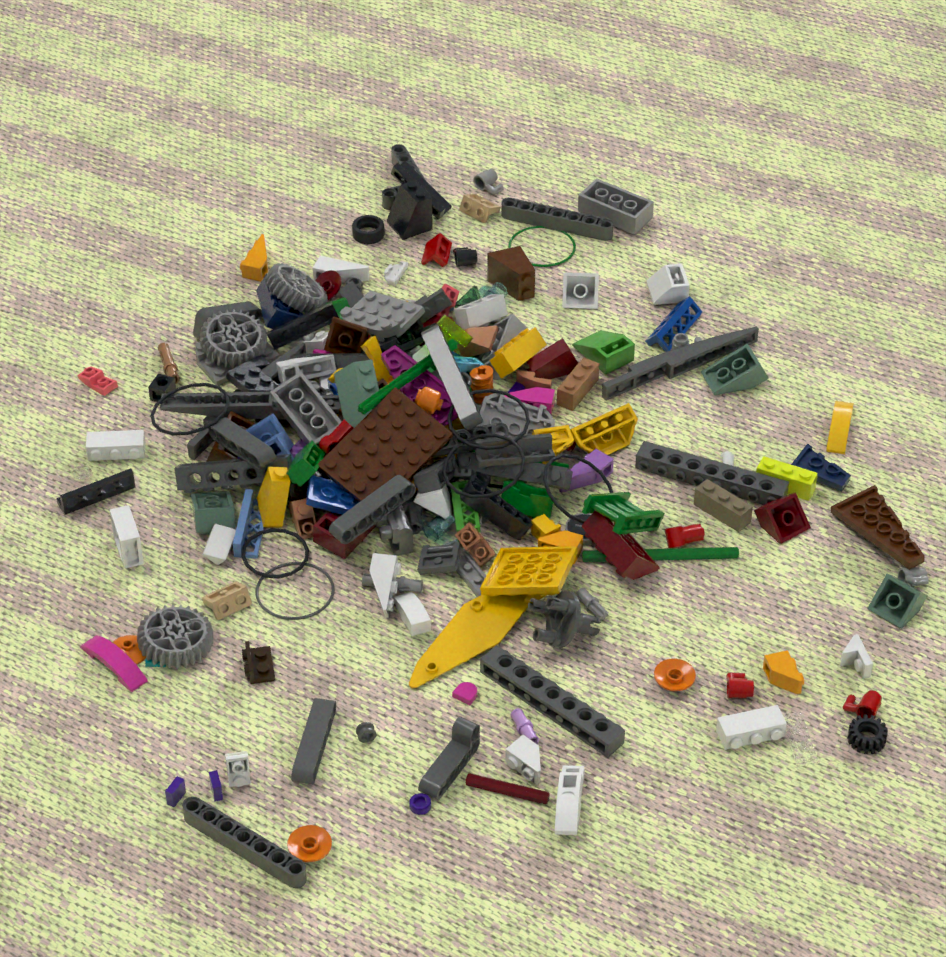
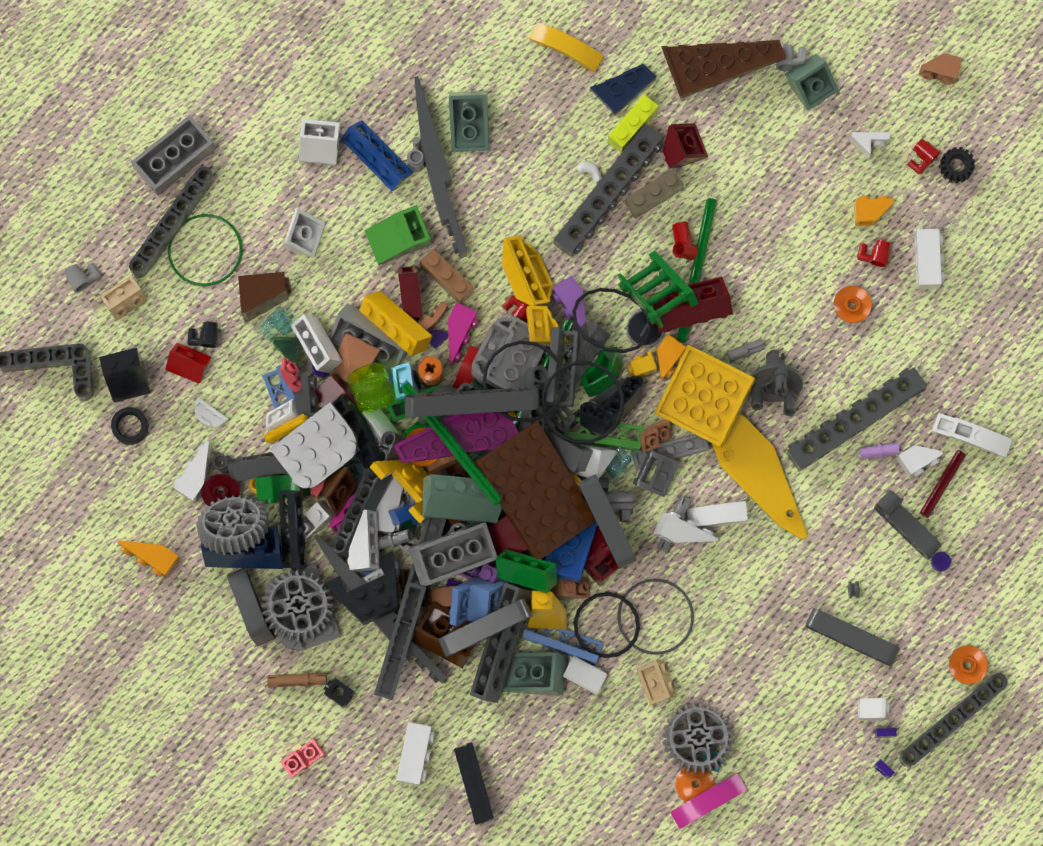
camera: 75 degrees left, 35 degrees up
(126, 536) = (559, 763): white window -> none
(195, 430) = (378, 684): black piece -> none
(259, 664) = (745, 667): dark brown bracket -> none
(335, 437) = (501, 536): red piece -> none
(406, 173) = (89, 352): black panel -> none
(429, 400) = (492, 433): orange head -> none
(465, 692) = (824, 490): dark pink tile -> none

